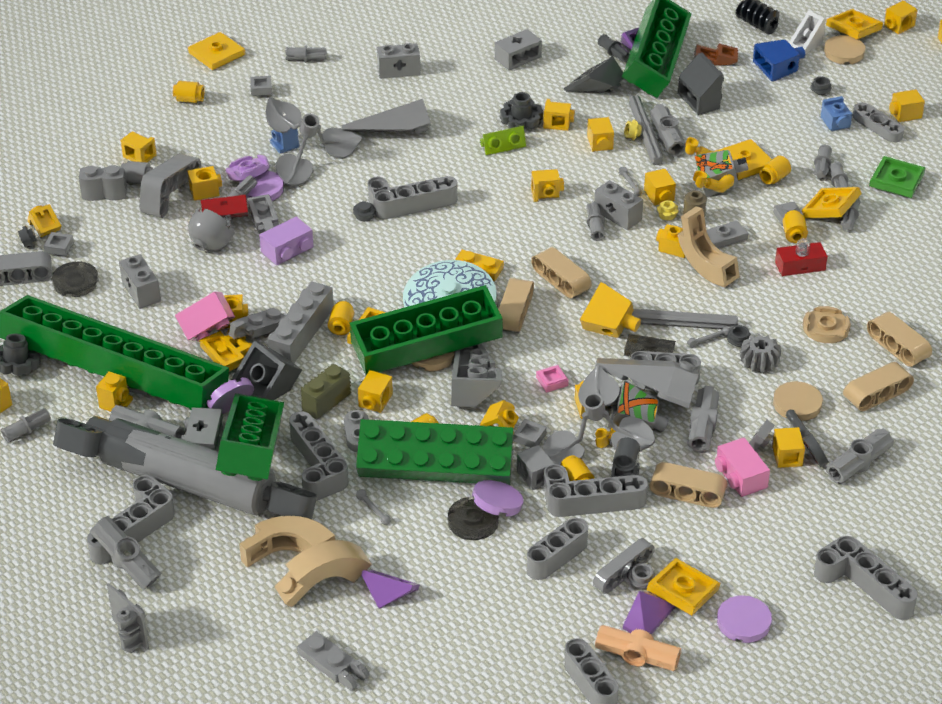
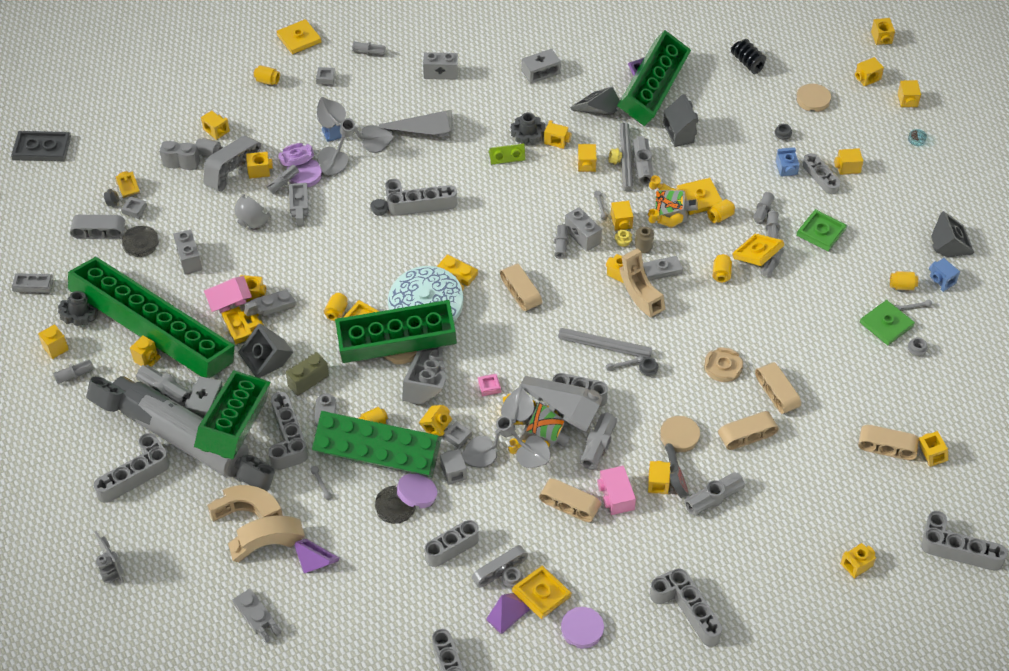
camera: 10 degrees right, 10 degrees up
(114, 540) = (127, 512): light grey piece -> none
(224, 395) = (224, 370): lavender tile -> none
(227, 207) = (267, 194): red piece -> none
(286, 240) = (310, 228): lavender brick -> none
(302, 321) = (303, 307): light grey brick -> none
(375, 391) = (346, 379): yellow brick -> none
(516, 303) = (475, 313): tan beam -> none
(546, 184) = (530, 201): yellow brick -> none
(576, 468) = (484, 477): yellow brick -> none
(592, 495) = (520, 499): light grey beam -> none
(609, 313) = (547, 333): yellow torso -> none
(613, 47) = (620, 72): dark grey axle -> none
(626, 458) = (524, 474): dark grey piece -> none
(638, 647) = (491, 641): light nougat piece -> none
(644, 343) = (573, 366): clear smoke plate -> none
(721, 56) = (706, 91): dark orange slope -> none
(760, 353) = (660, 386): light grey gear -> none
(762, 436) = (640, 464): light grey plate -> none
(777, 58) = (754, 100): blue torso -> none
(781, 209) = (721, 249): light grey plate -> none
(801, 258) = (719, 299): red piece -> none
(809, 33) = (785, 80): white slope -> none
(854, 24) = (828, 73): yellow plate -> none

